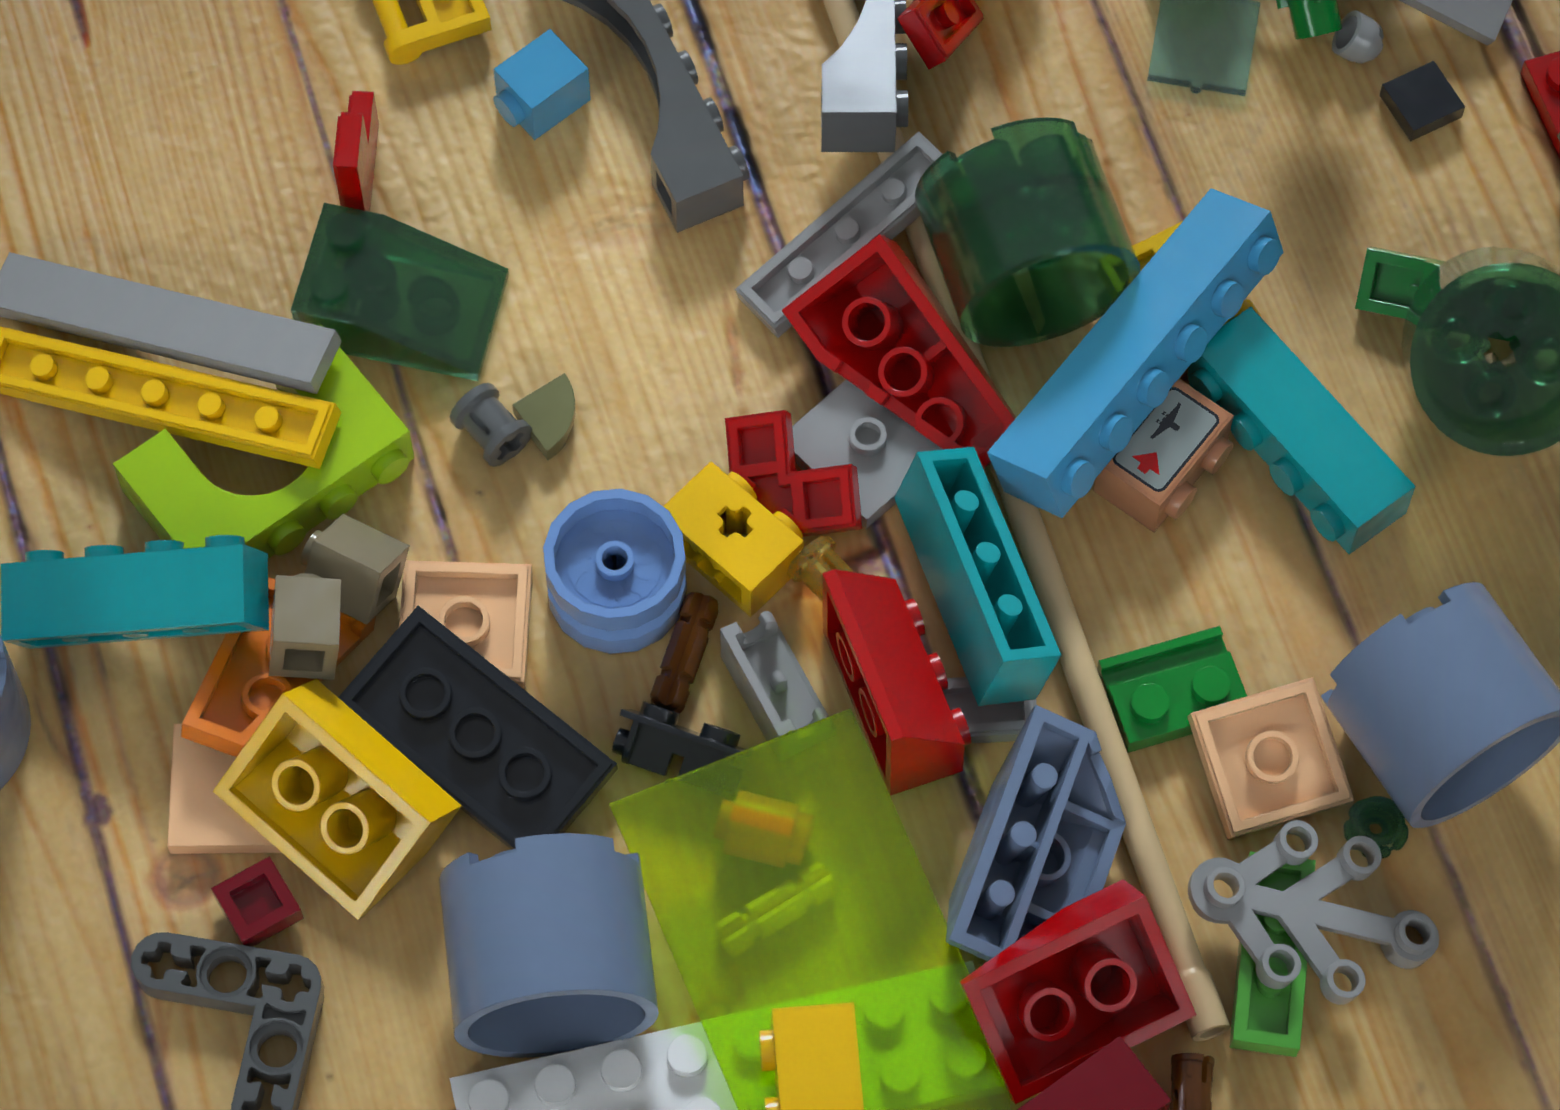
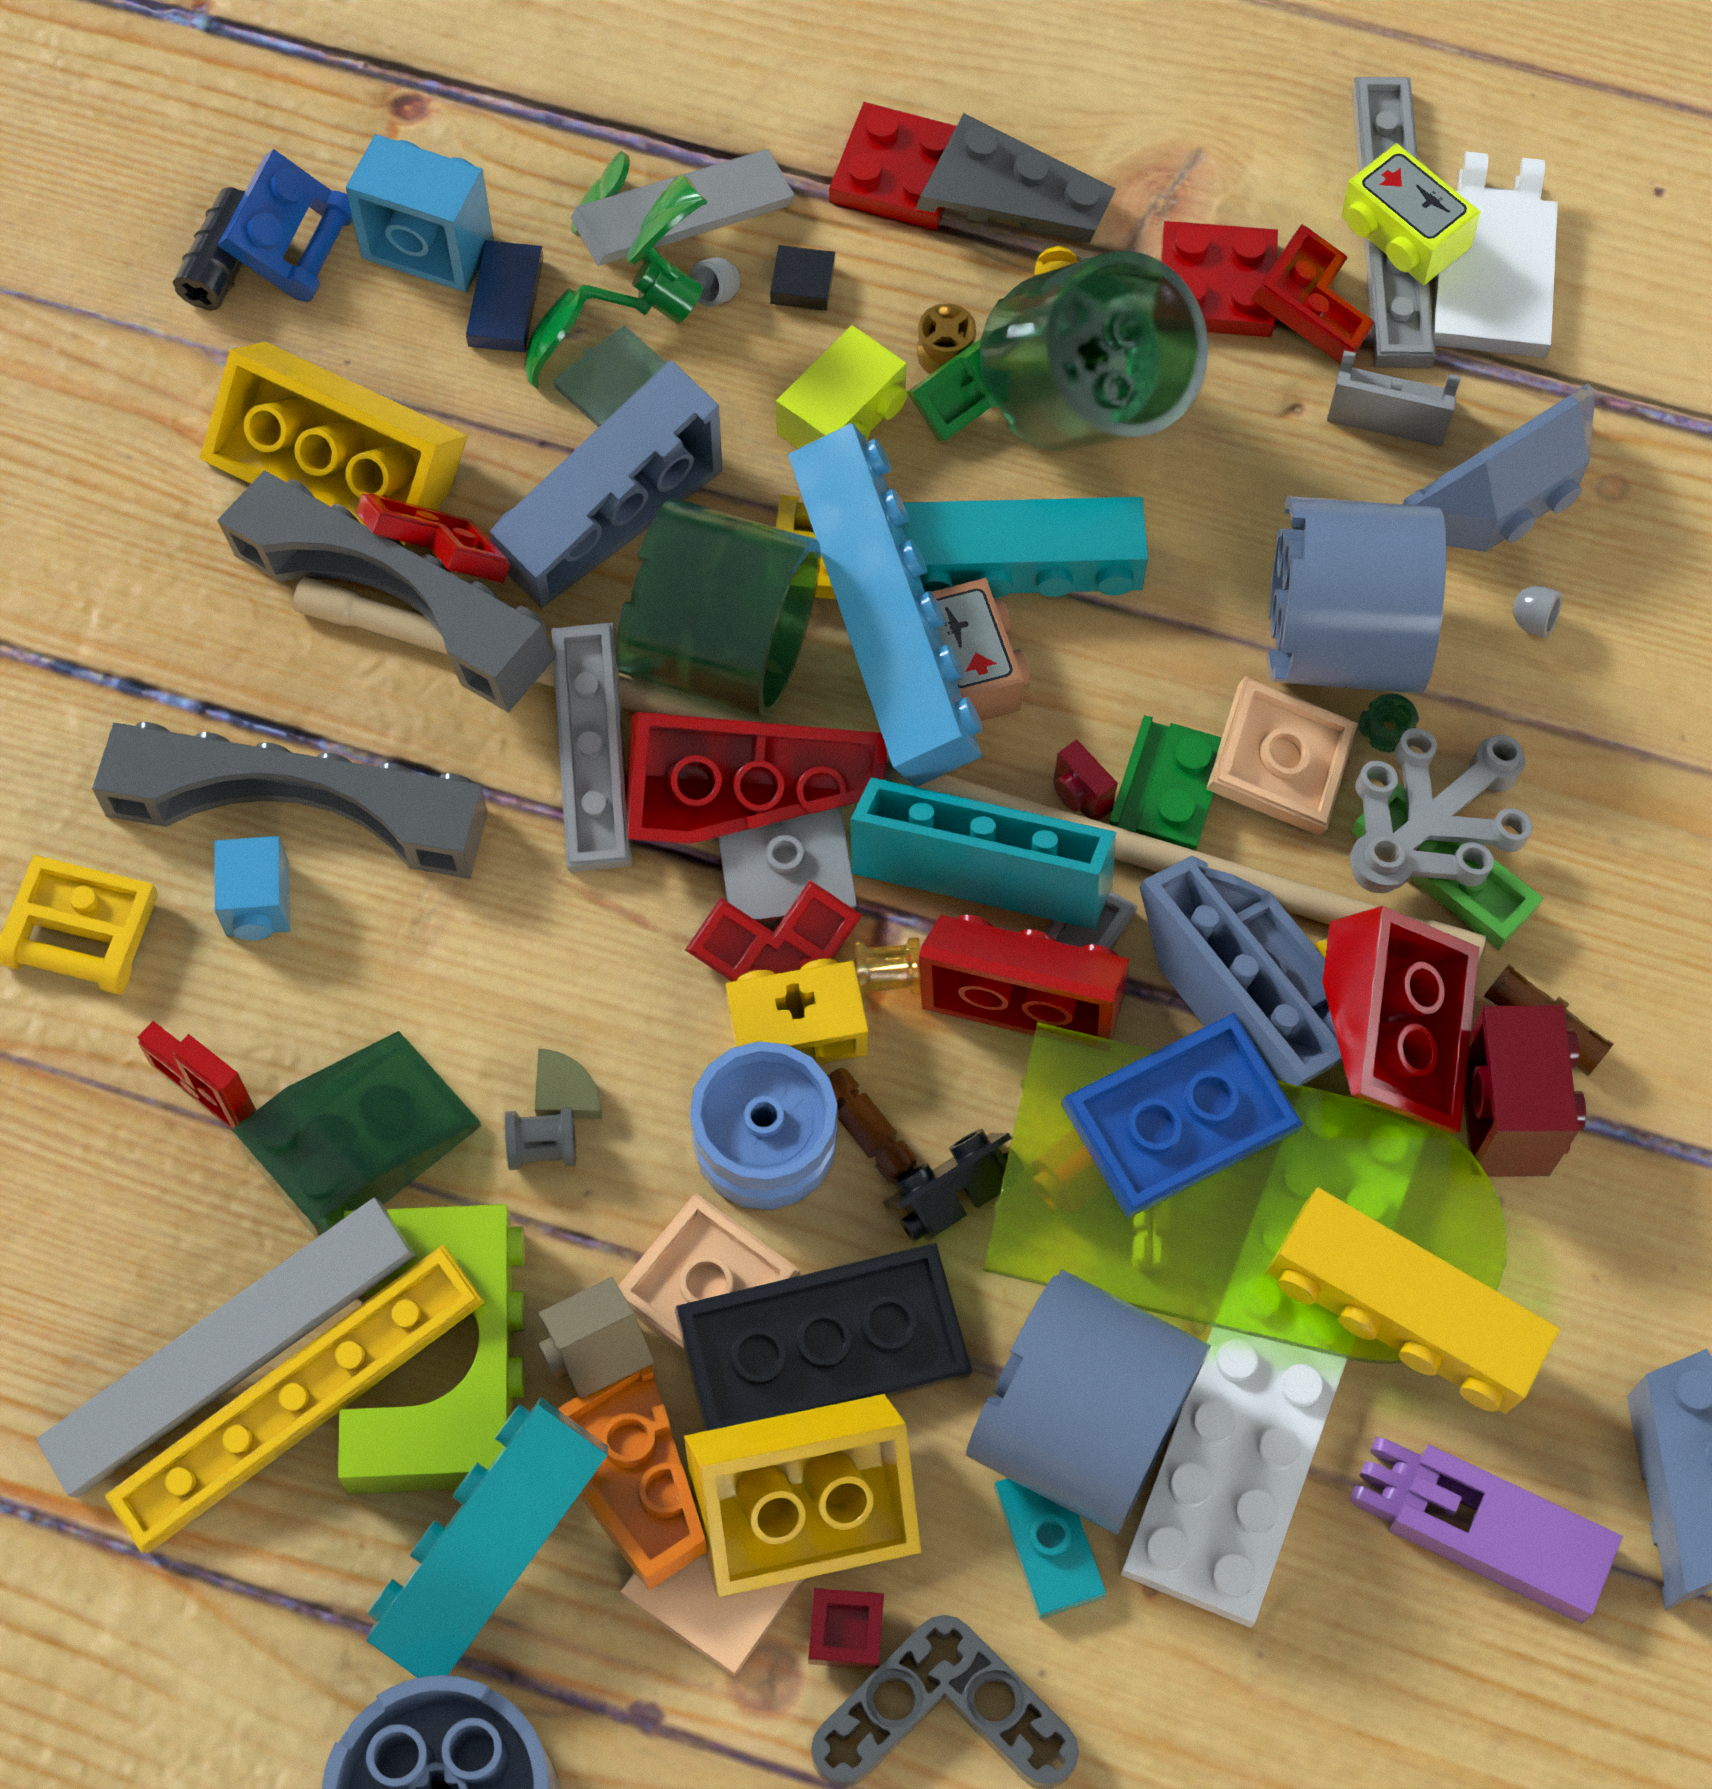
camera: 55 degrees left, 0 degrees up
(305, 626) = (631, 1410): dark tan brick -> none
(421, 1027) = (1050, 1550): none -> teal plate
(770, 677) = (954, 1077): light grey hinge -> none
(854, 869) = (1181, 1115): none -> blue tile
(1112, 616) = (1084, 782): none -> dark red plate
(1117, 90) = (612, 485): none -> sand blue wedge
(1327, 201) = (846, 385): none -> neon yellow brick
(1452, 228) = (943, 325): none -> pearl gold wheel

